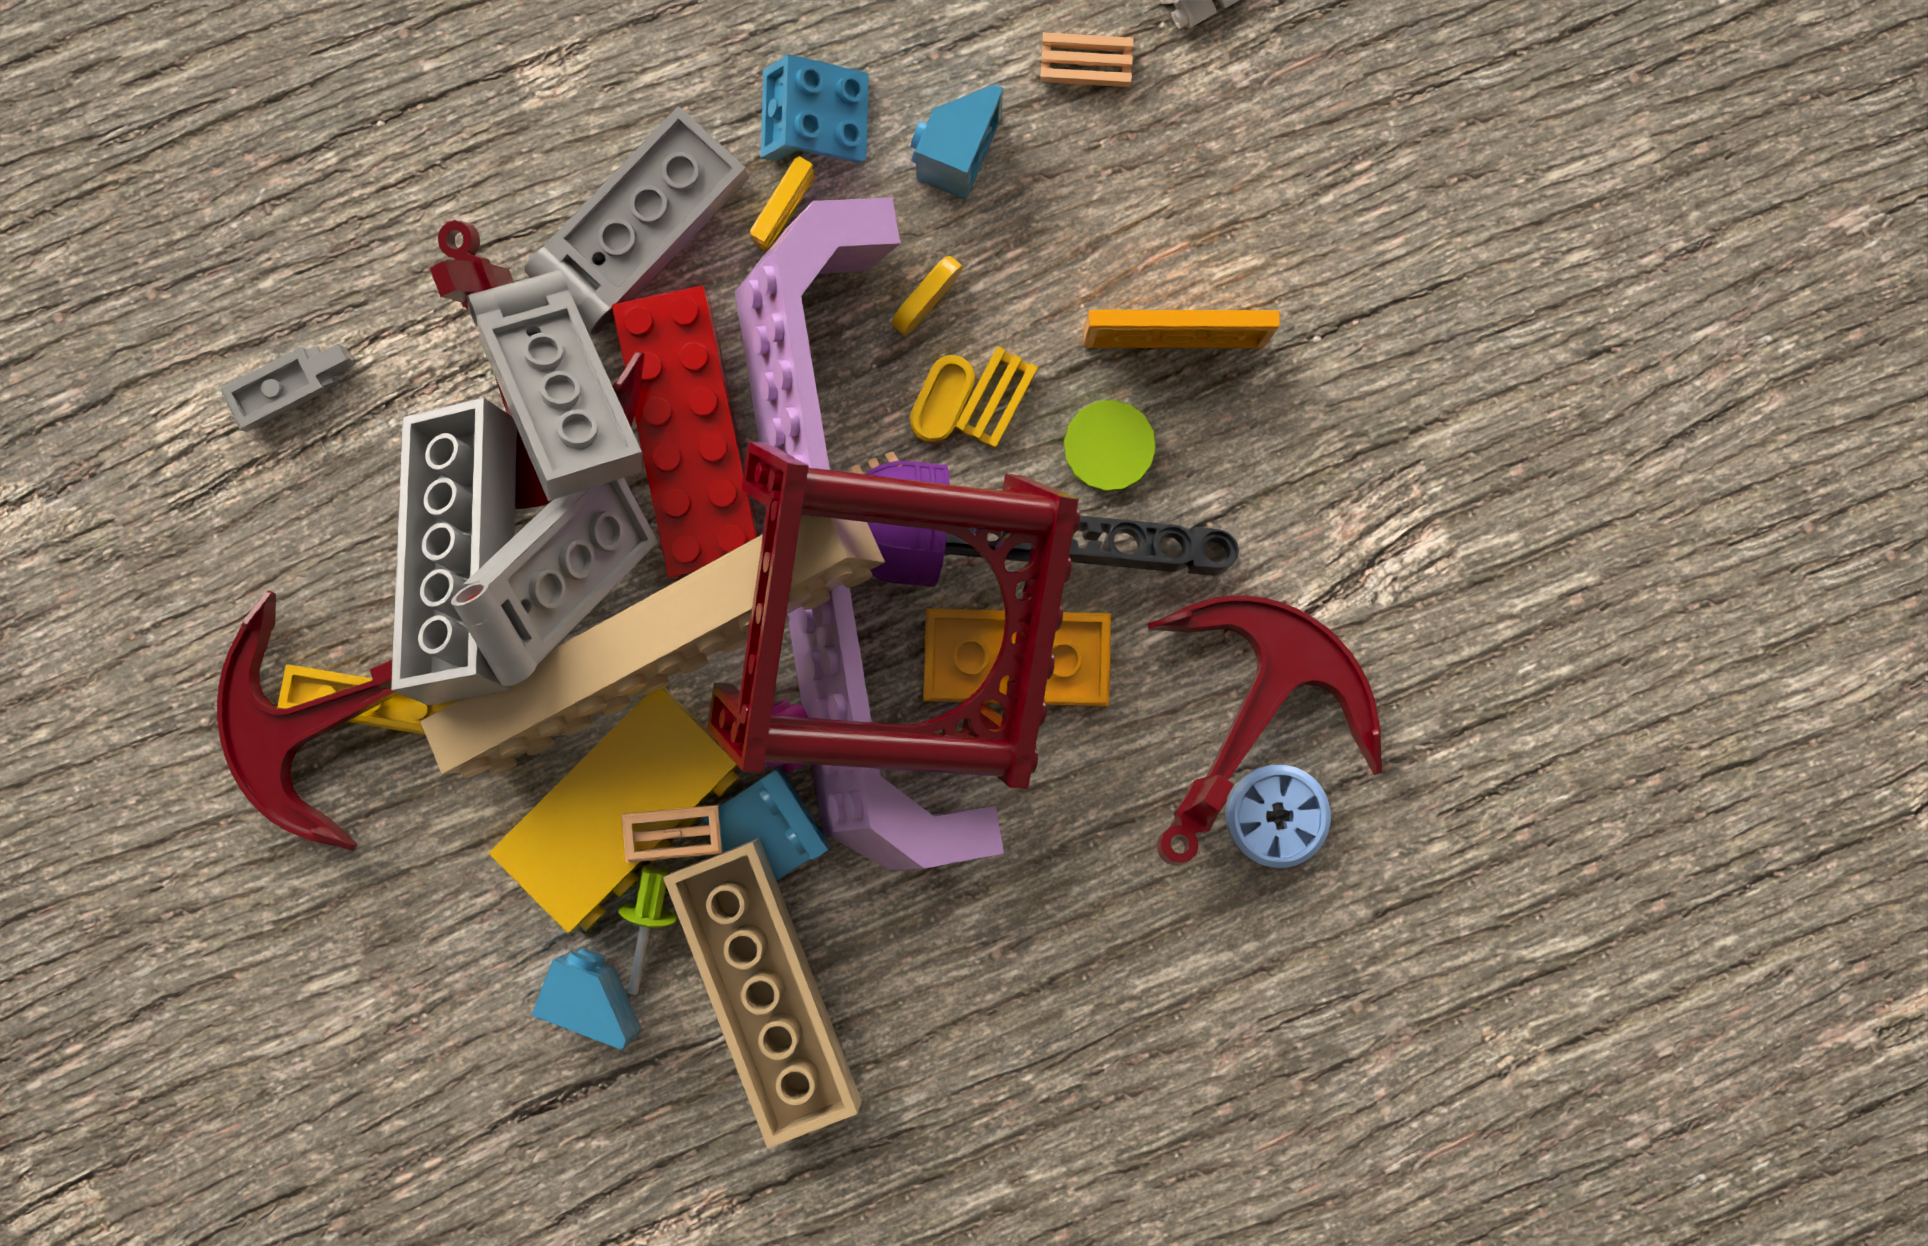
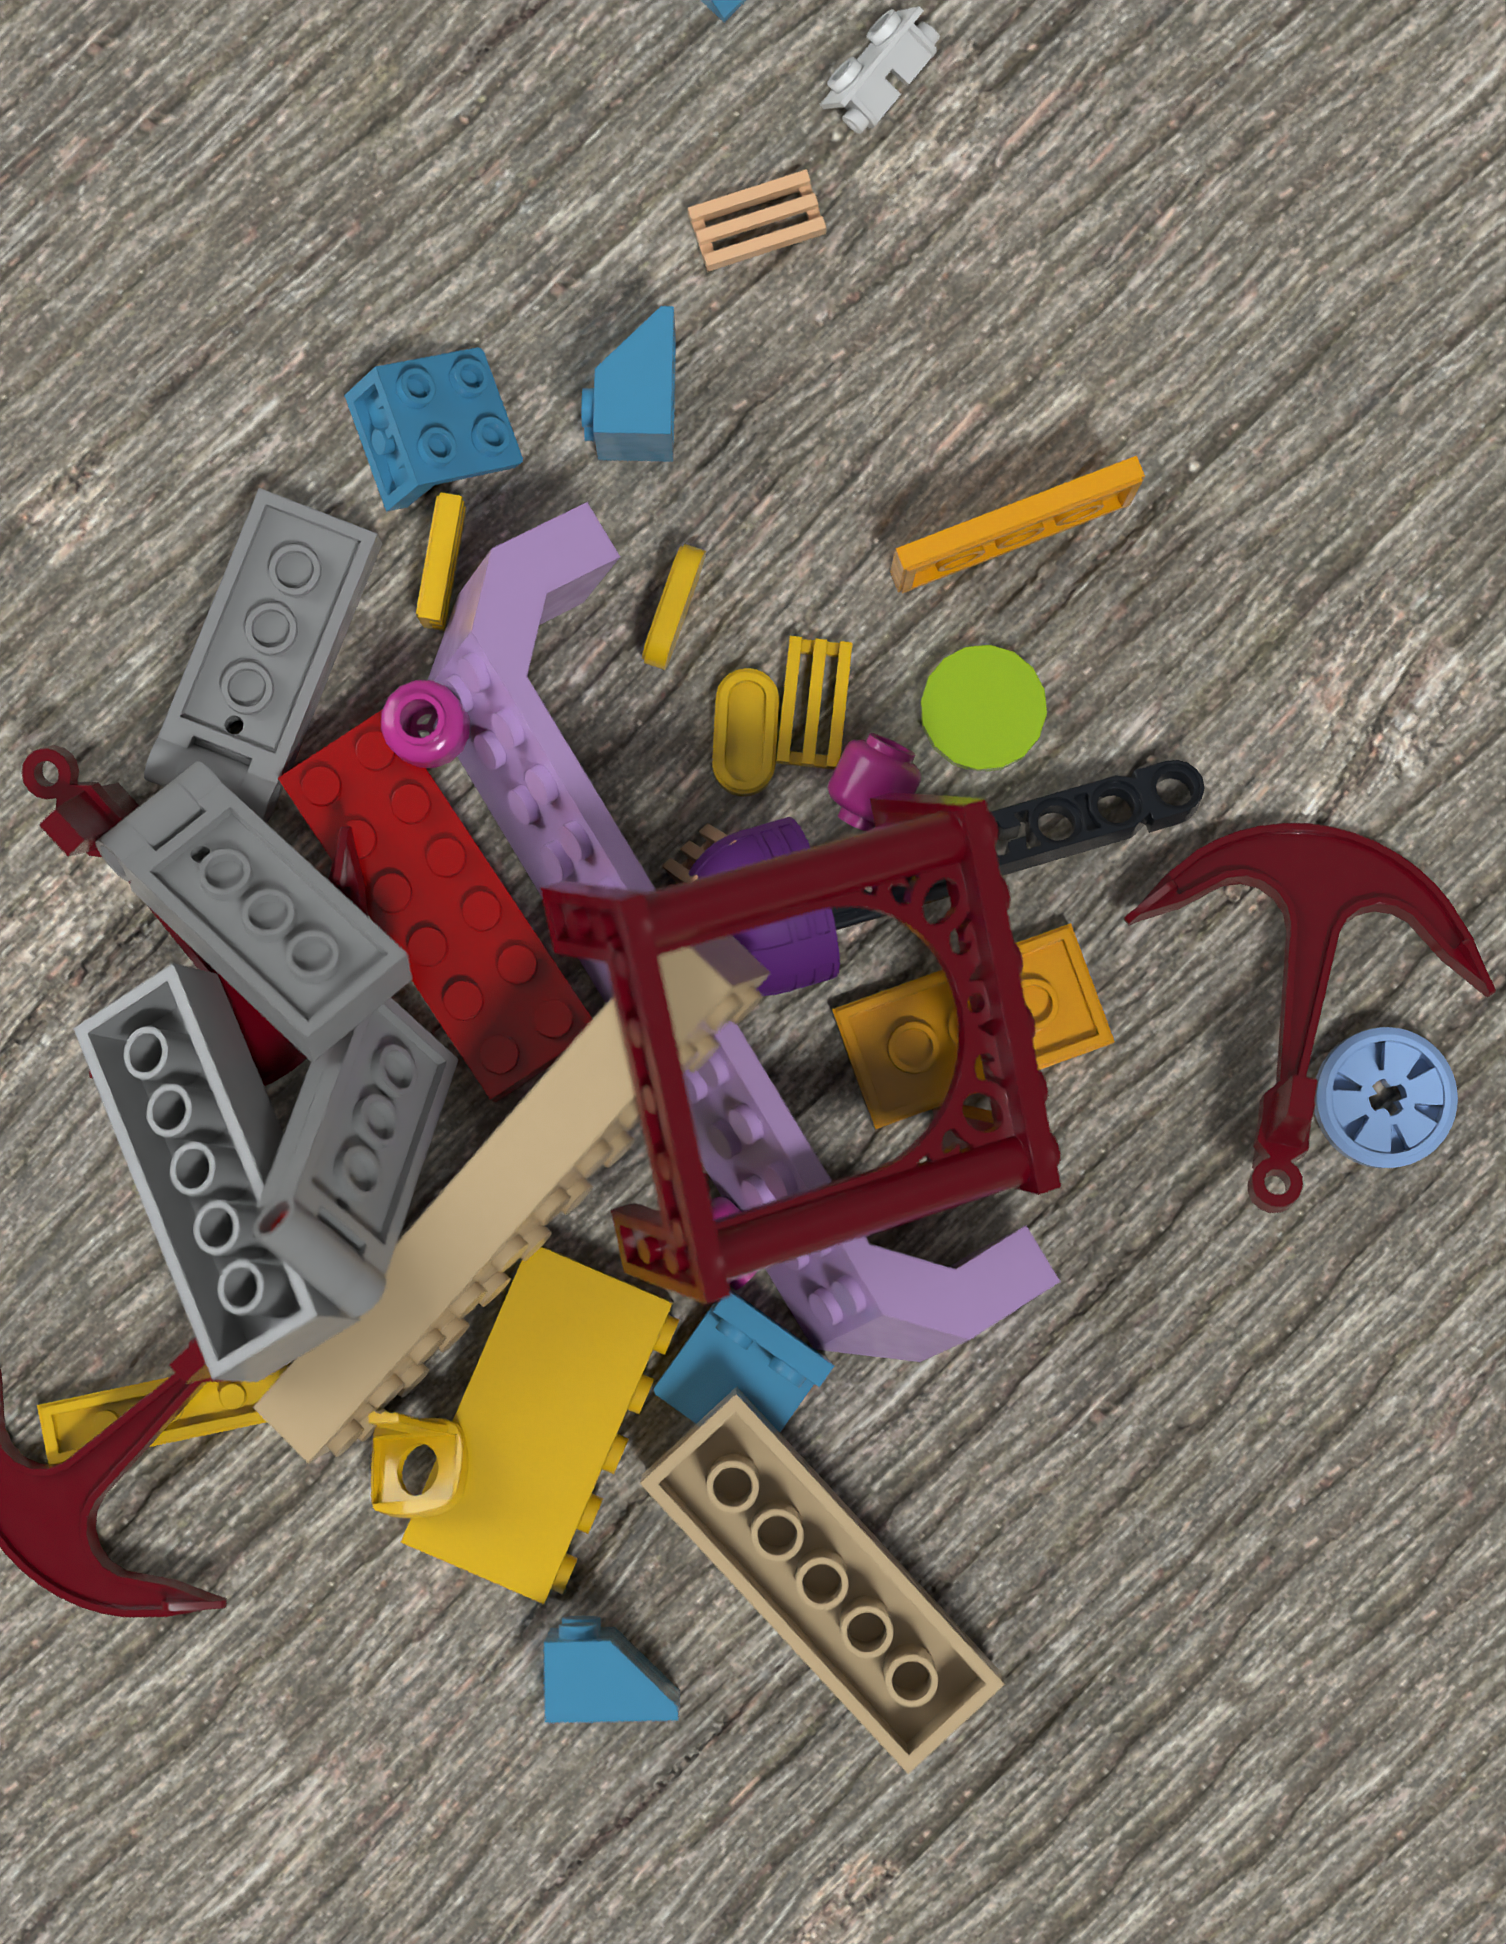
camera: 20 degrees left, 0 degrees up
(509, 785) = (393, 1441): none -> yellow piece
(647, 914) = (632, 1540): lime piece -> none
(710, 303) = (407, 711): none -> dark pink head
(712, 829) = (577, 1448): light nougat tile -> none
(1014, 456) = (871, 770): none -> dark pink head

